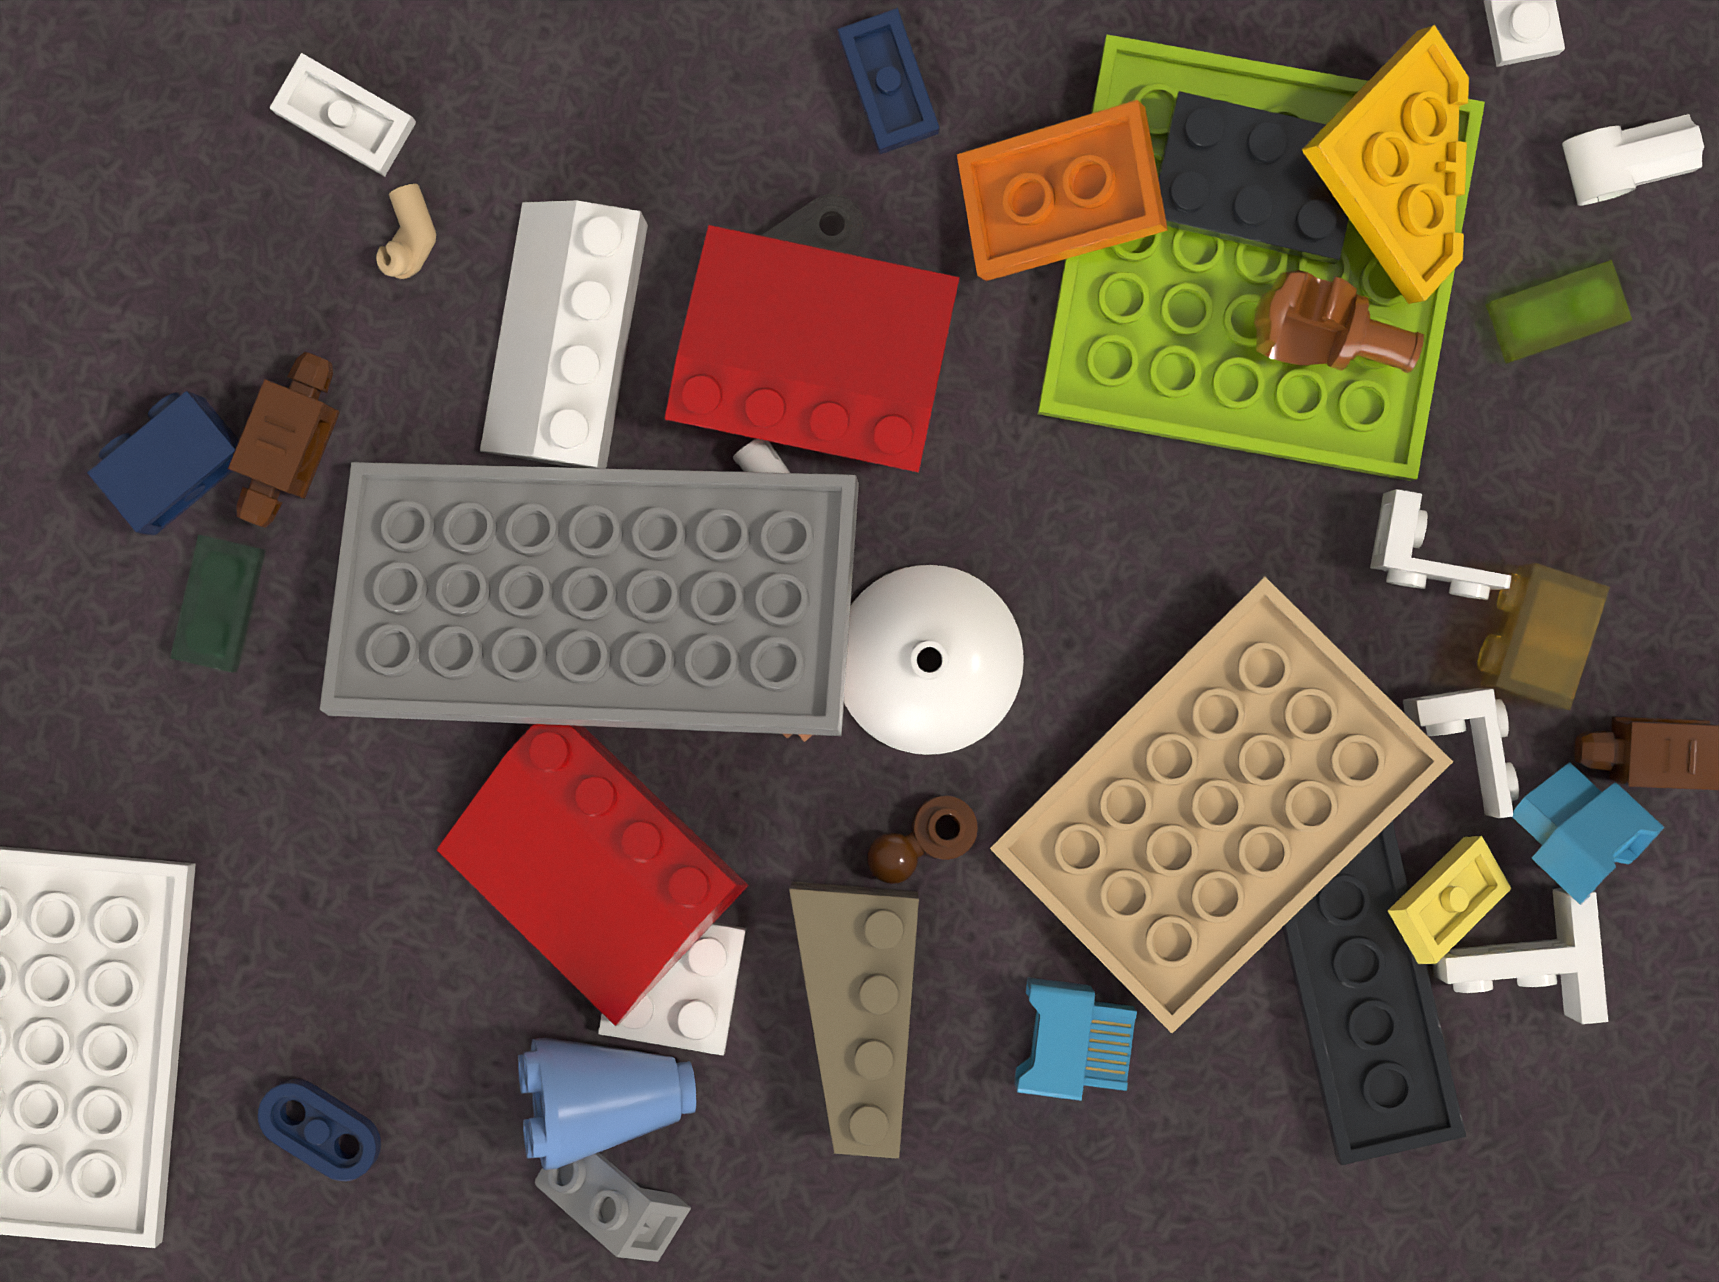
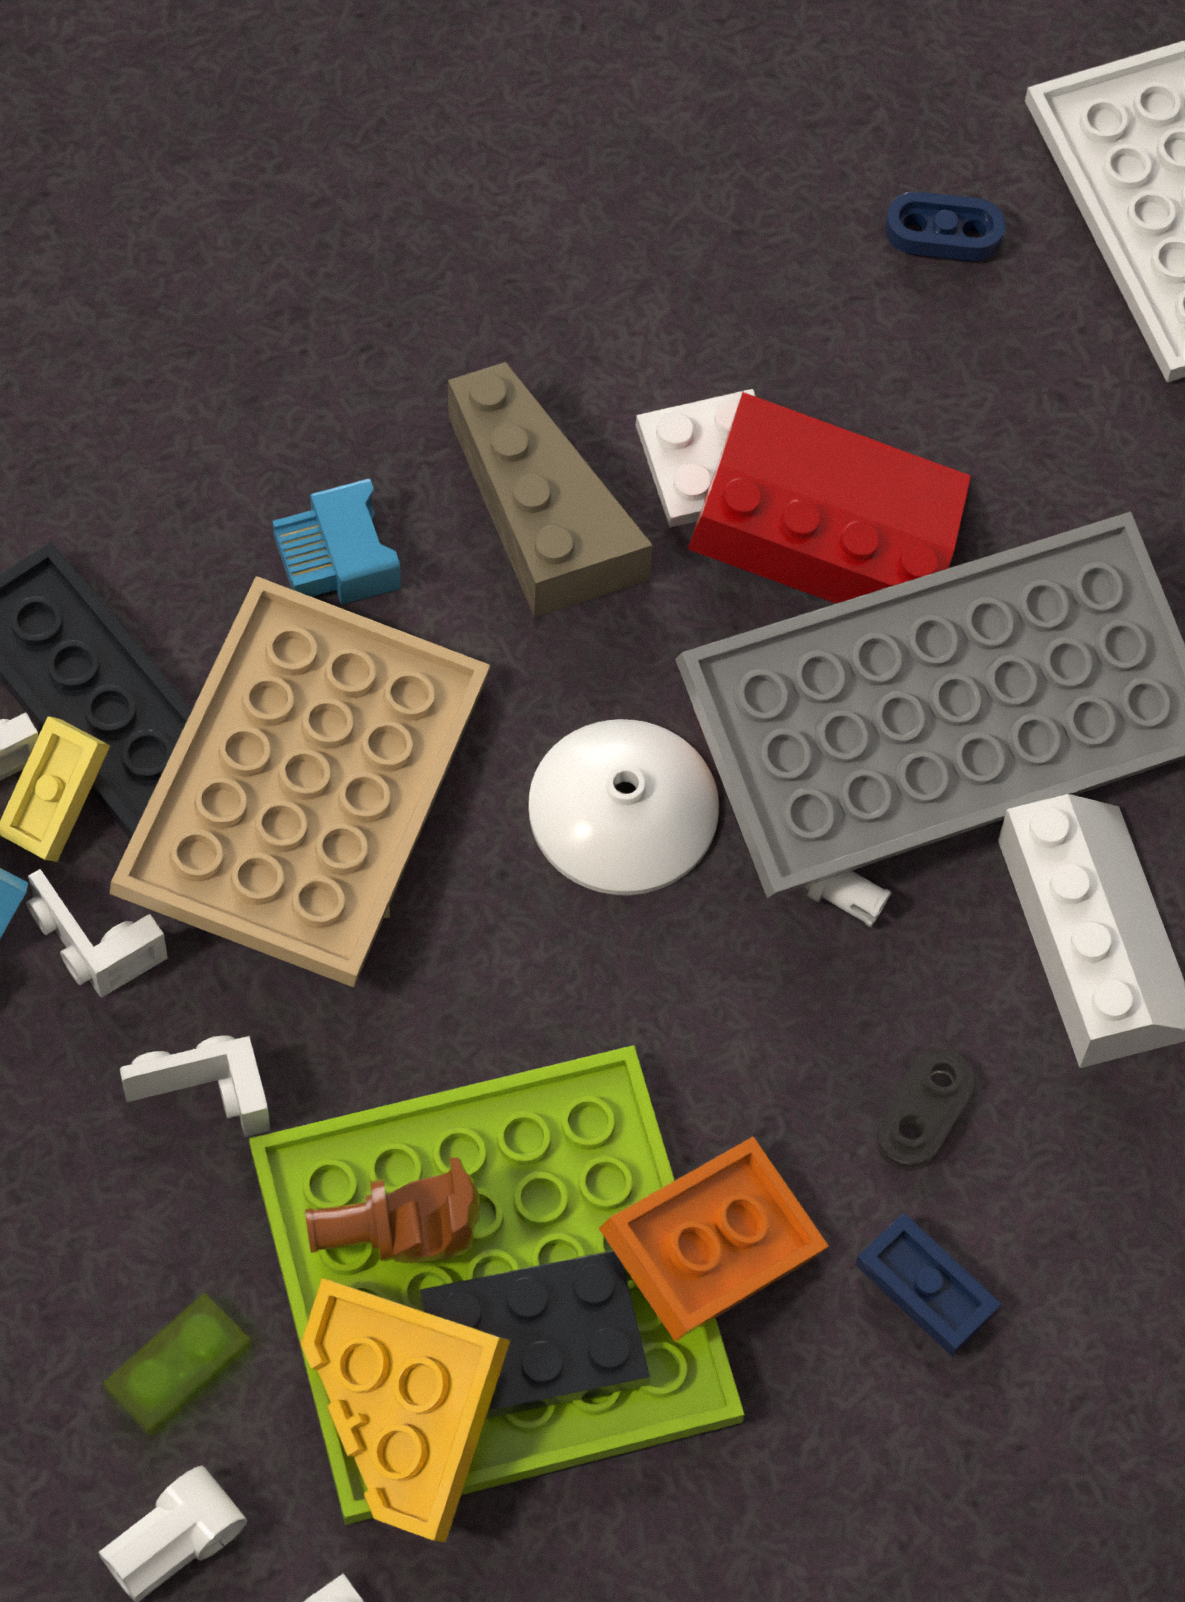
camera: 150 degrees right, 25 degrees down
(597, 1097) = (728, 332): medium blue cone -> none
(613, 1208) = (675, 260): light grey bracket -> none
(812, 348) = (868, 1002): red slope -> none
(895, 856) = (569, 629): reddish brown plate -> none
(1542, 635) = (64, 1053): clear yellow brick -> none

